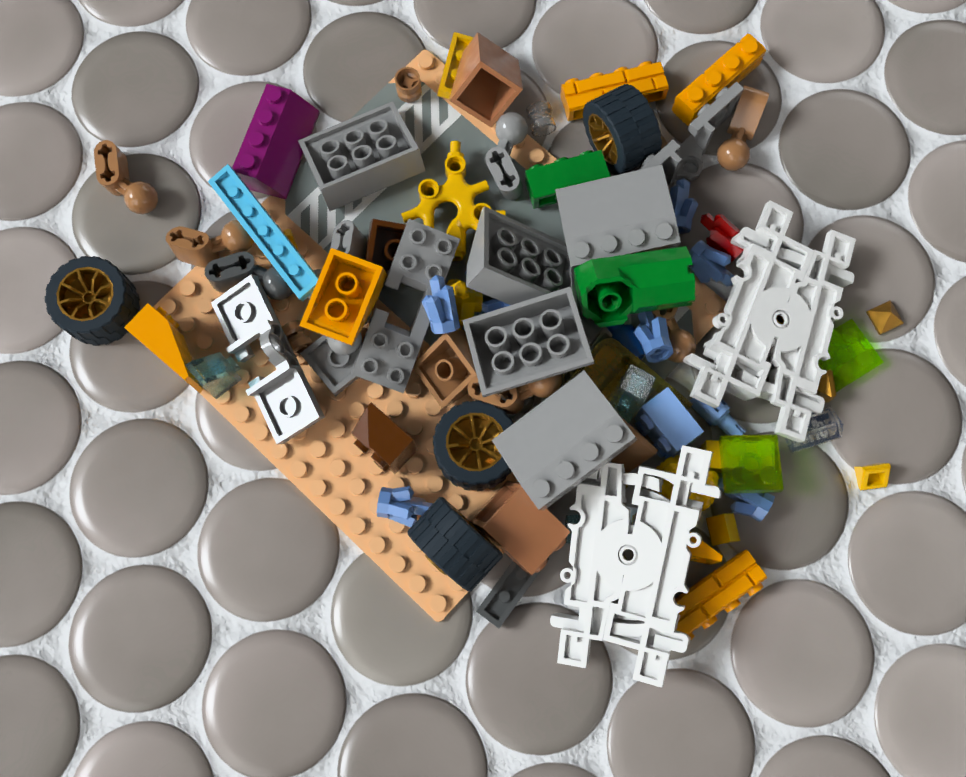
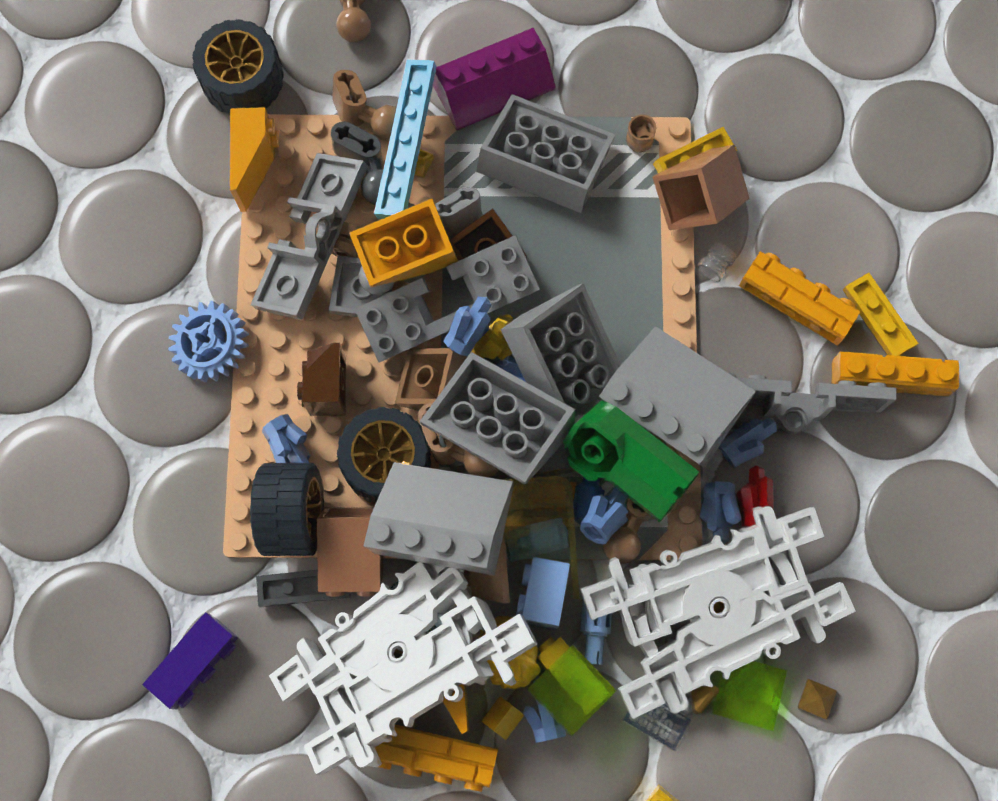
camera: 45 degrees right, 0 degrees up
(215, 373) = (261, 207): clear light blue slope -> none
(280, 505) = (198, 331): none -> light blue gear
(455, 191) = (585, 254): yellow plant -> none
(496, 711) = (191, 662): none -> dark purple brick
(510, 130) = (678, 247): light grey beam -> none
(564, 172) = (681, 323): green brick -> none
(622, 127) = (764, 333): black wheel -> none
(672, 54) = (880, 316): none -> yellow plate
(734, 152) = (840, 443): medium nougat beam -> none

